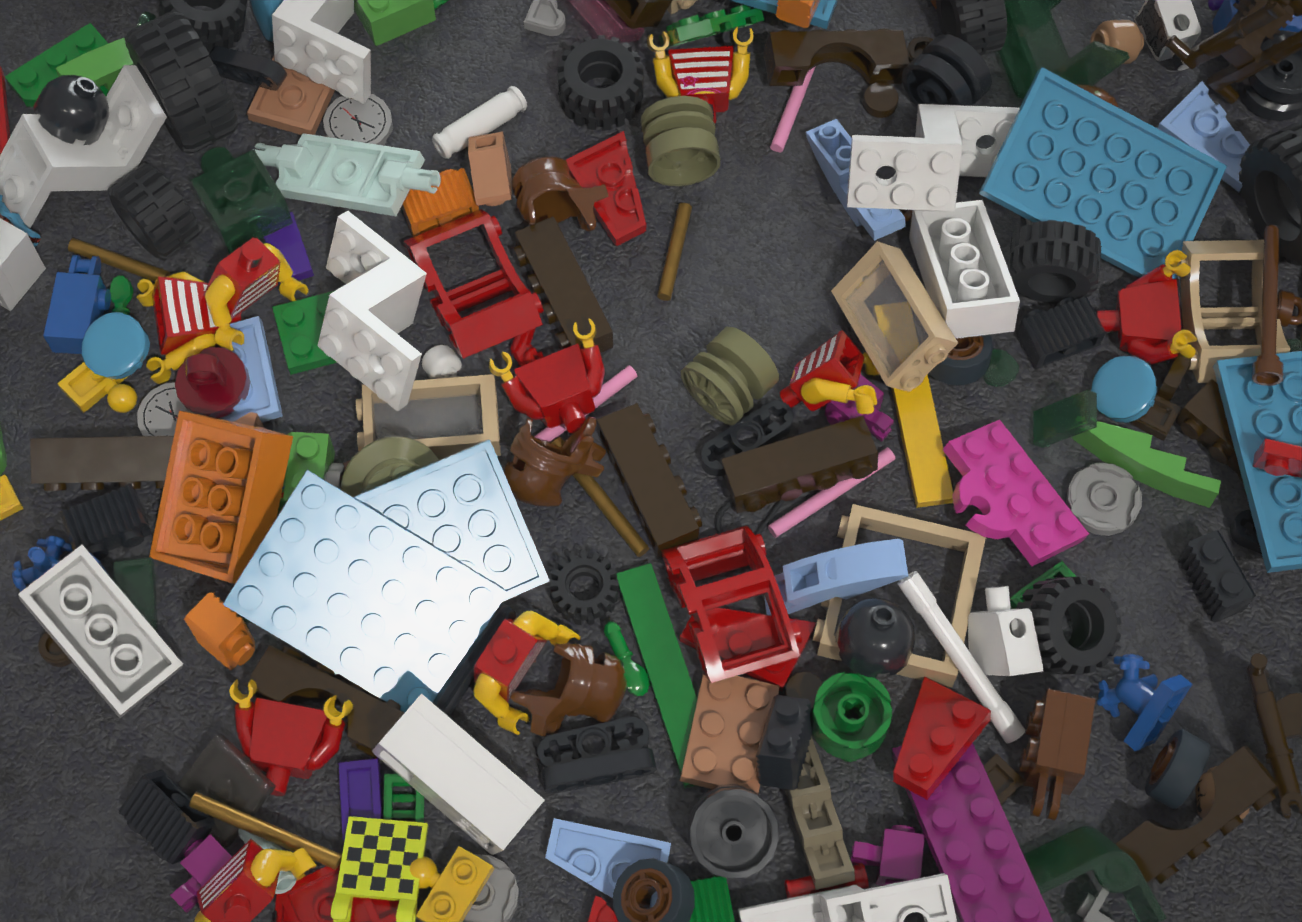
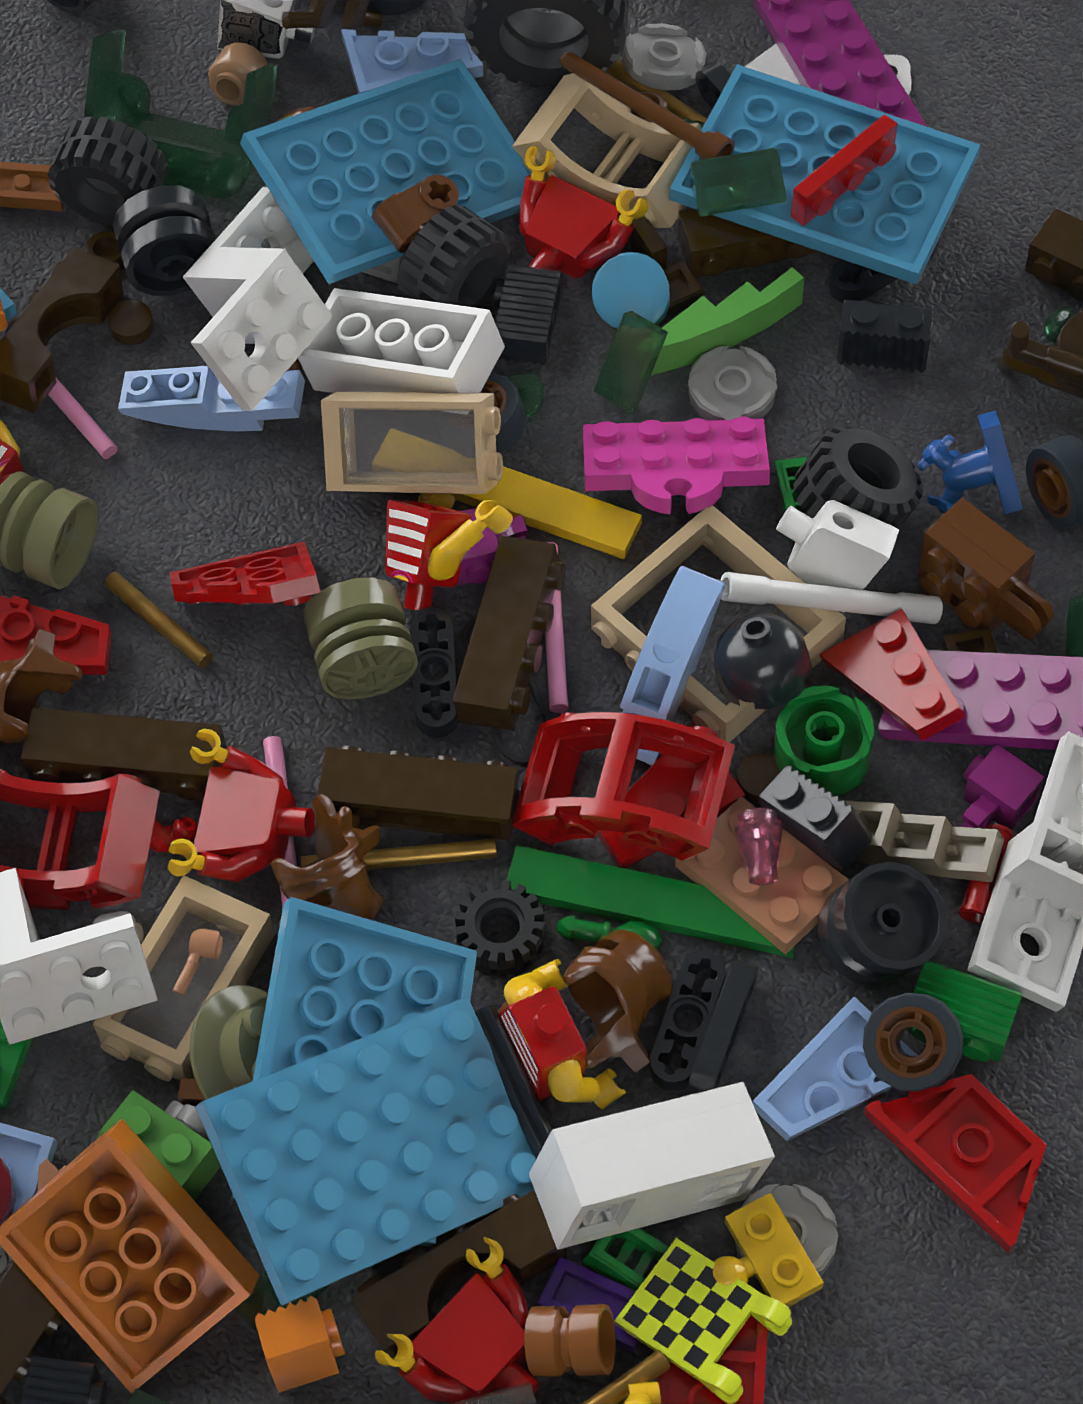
camera: 55 degrees left, 5 degrees down
(318, 796) = (575, 1339): none -> dark orange wheel
(448, 412) = (203, 944): none -> nougat hand
(732, 287) = (257, 577): none -> red plate
(740, 715) = (760, 843): none -> clear pink cone
(1066, 205) = (407, 212): none -> reddish brown piece
(1252, 401) = (737, 182): none -> clear green slope

